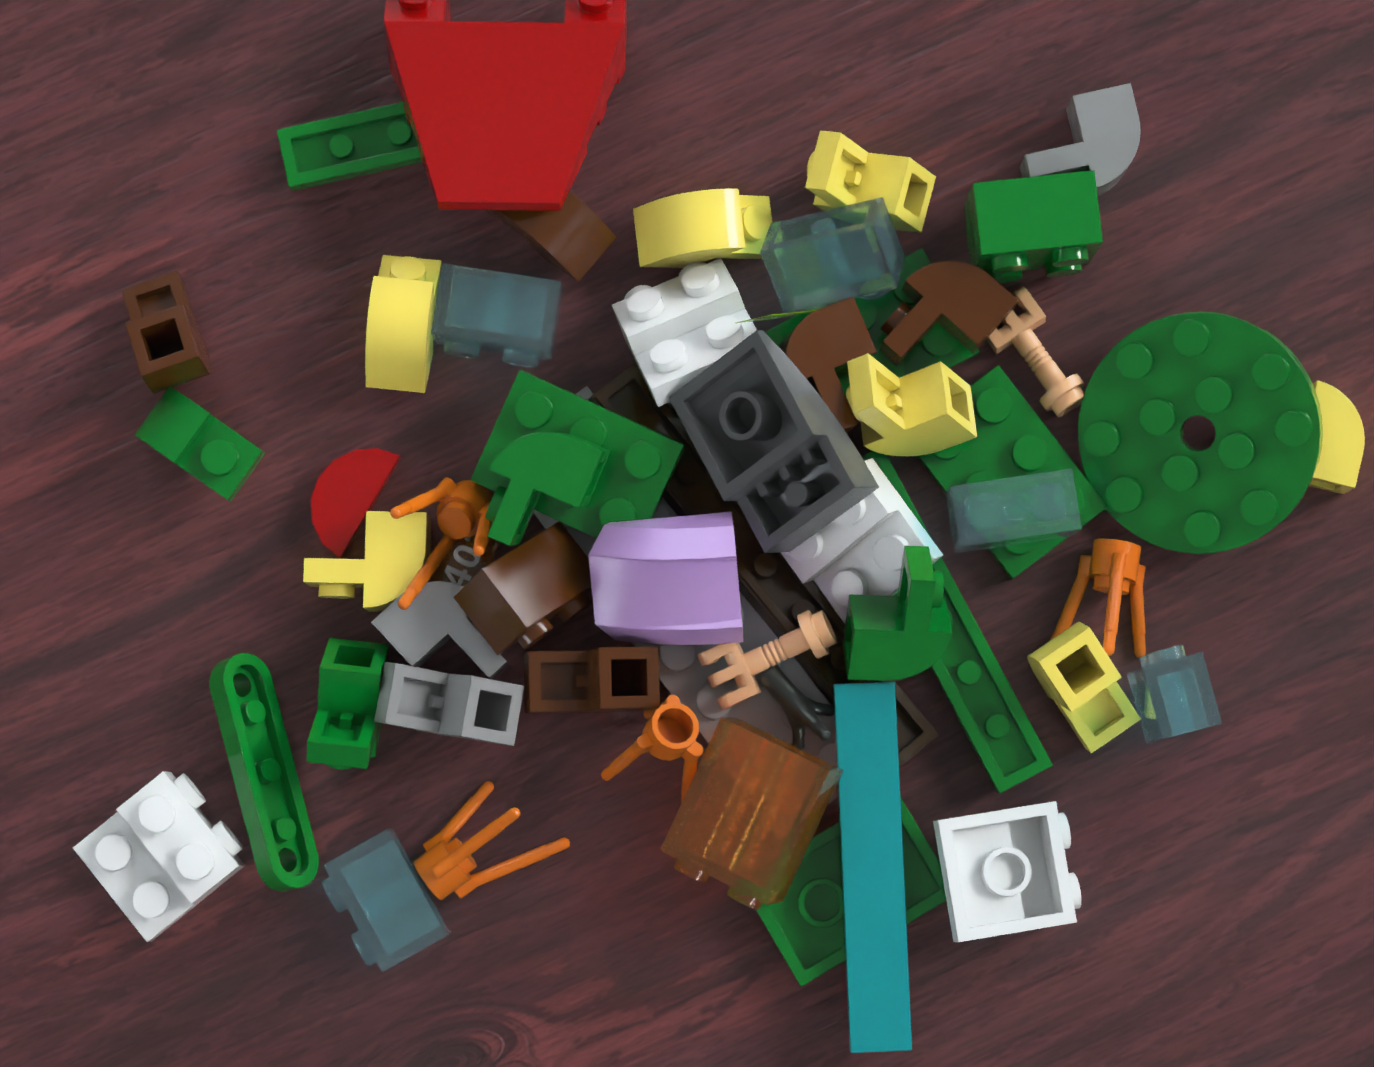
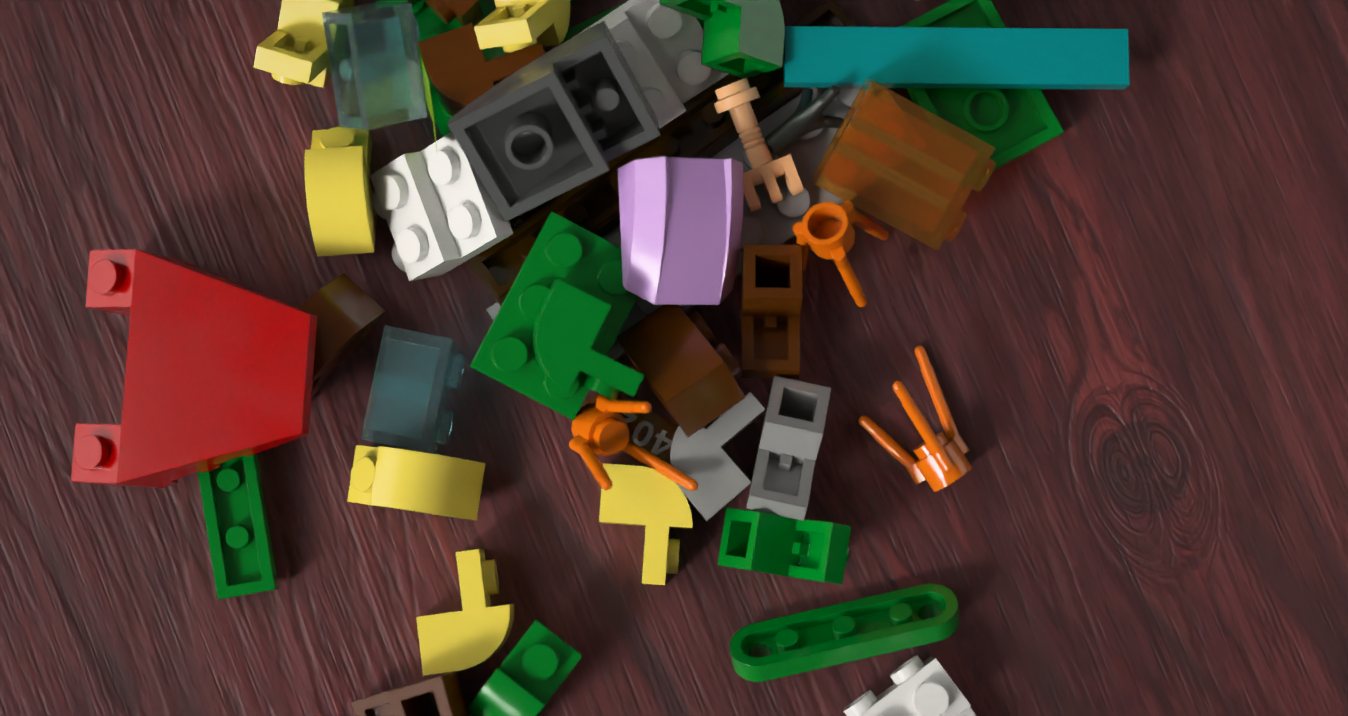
camera: 90 degrees left, 0 degrees up
(249, 387) = (470, 635): none -> light yellow brick
(346, 493) = (579, 544): red tile -> none
(384, 900) = (971, 519): clear light blue brick -> none

